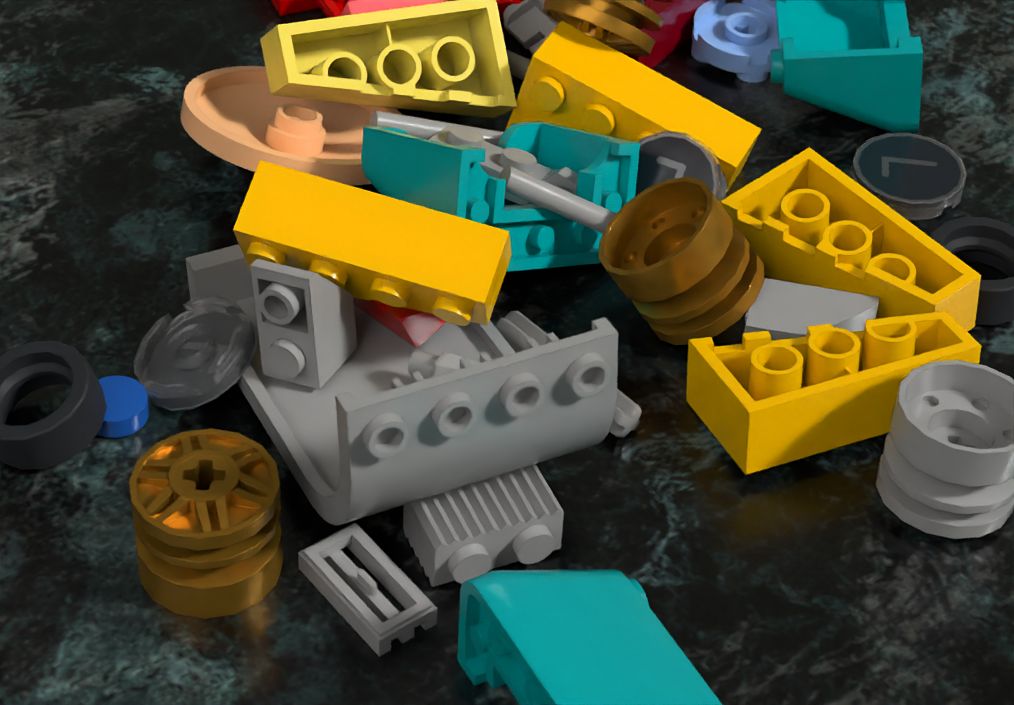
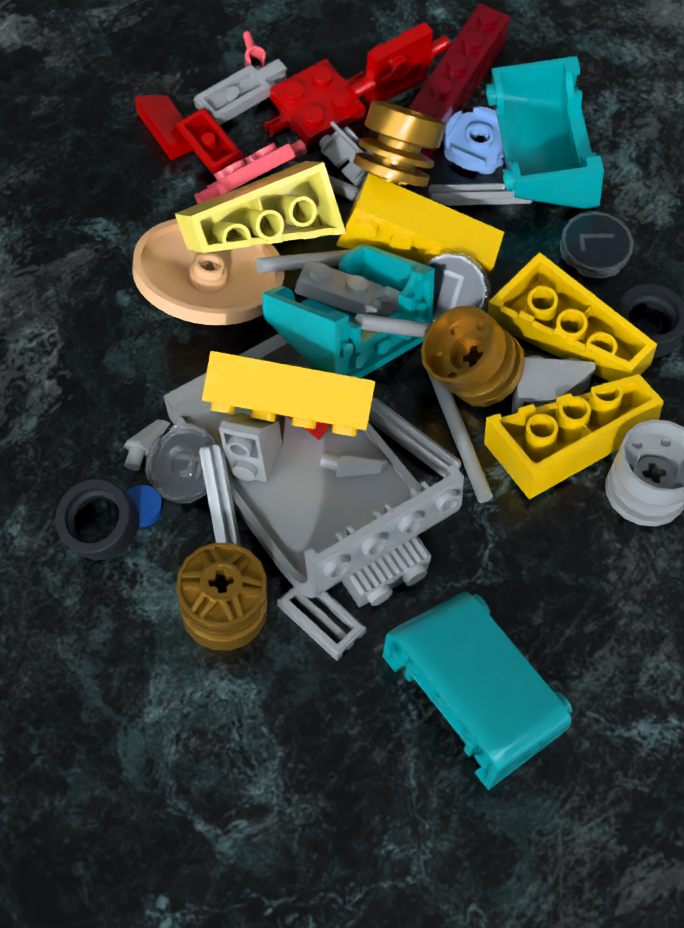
camera: 10 degrees left, 20 degrees up
(132, 327) = (141, 443): none -> light grey bar
(238, 372) = (219, 494): none -> light grey axle
(649, 384) = (462, 442): none -> light grey bar
(748, 97) = (472, 194): none -> light grey axle

